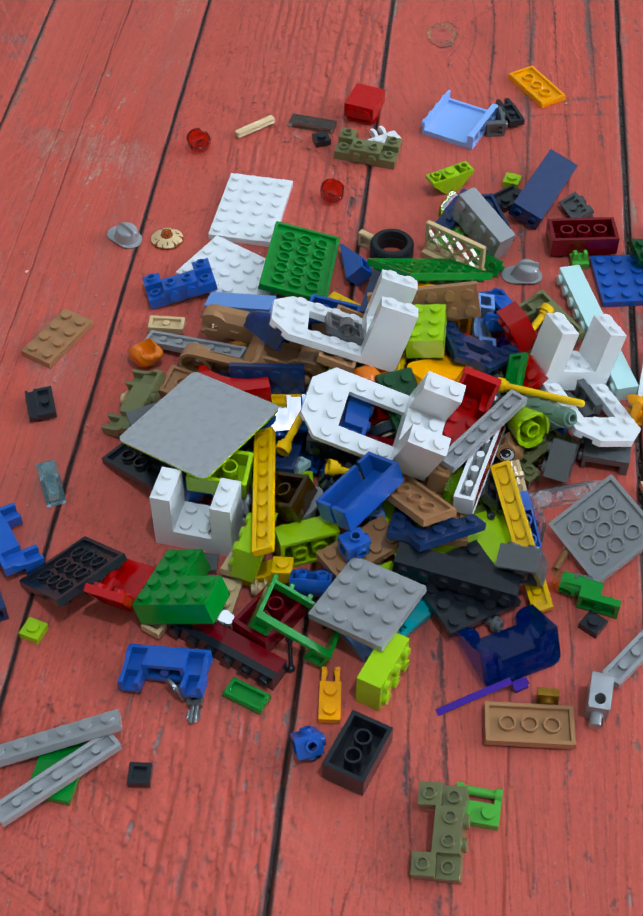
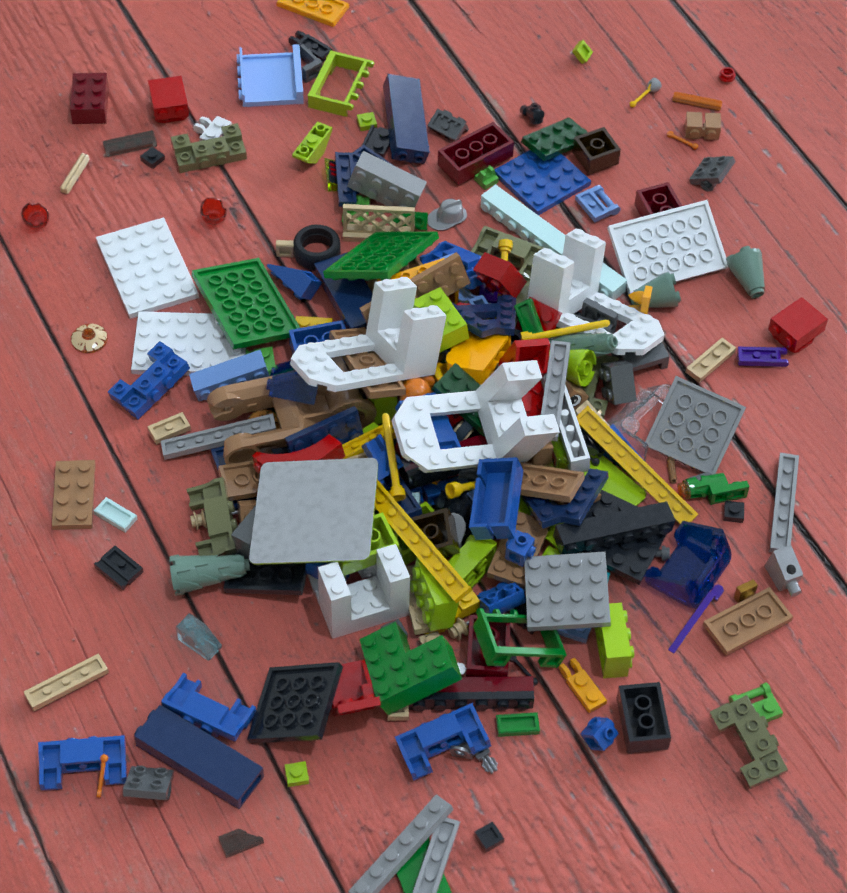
camera: 35 degrees left, 5 degrees up
(74, 366) = (115, 514): none -> light aqua tile
(88, 433) = (198, 571): none -> sand green cone
(125, 235) = (45, 354): light grey piece -> none
(145, 353) = (177, 467): orange hair -> none
(307, 82) = (89, 98): none -> dark red brick
(344, 328) = (367, 354): dark grey plate -> none
(512, 130) = (345, 61): none -> lime hinge
(523, 561) = (659, 489): dark grey brick -> none

